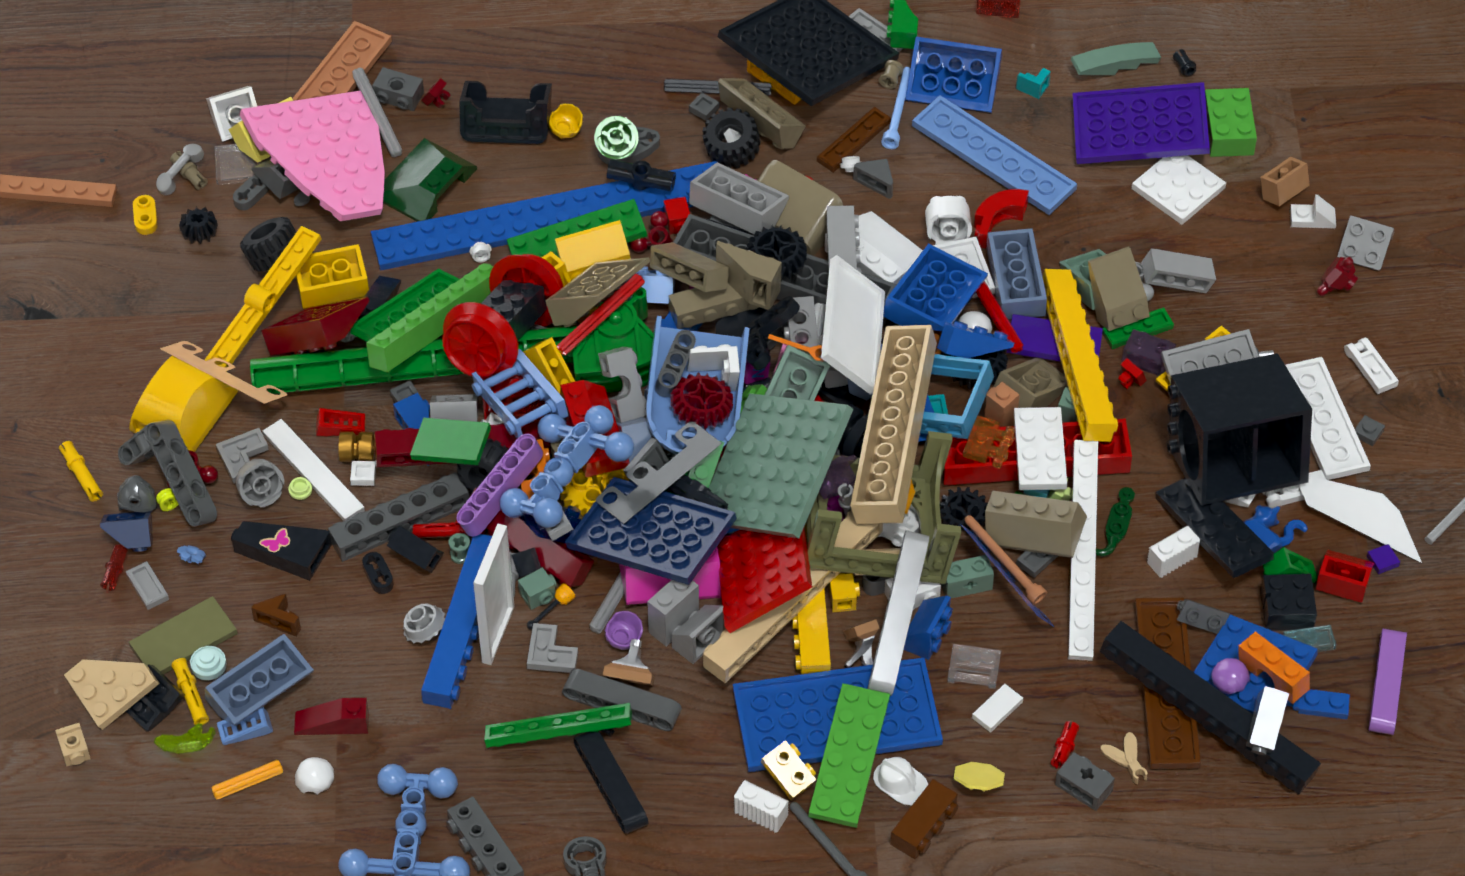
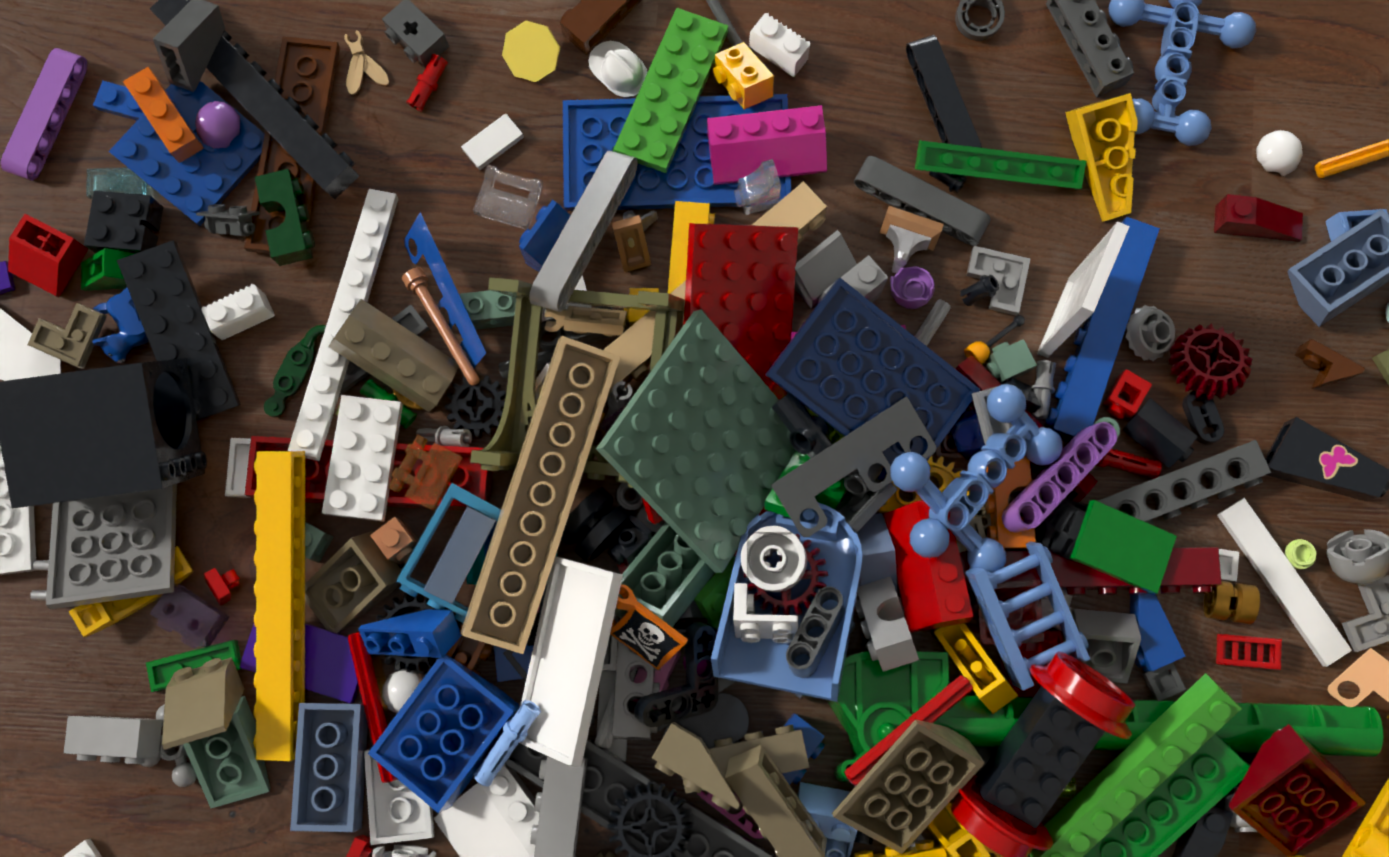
camera: 170 degrees left, 25 degrees up
(366, 598) = (1228, 361): none -> dark red gear
(441, 576) = (1133, 388): none -> red brick
(468, 754) = (1105, 139): none -> yellow wedge
(563, 634) = (985, 287): none -> black pin
(712, 390) = (760, 546): none -> white brick
(760, 673) = (759, 189): none -> clear arch
(760, 717) = (787, 136): none -> dark pink slope
(885, 286) = (513, 733): none -> light blue pin
(947, 384) = (459, 555): none -> sand blue tile
(983, 483) = (446, 437): none -> light grey axle
(1142, 459) = (237, 467): none -> white tile
(1142, 597) = (290, 240): none -> dark green arch
(1300, 507) = (69, 343): none -> dark tan tile

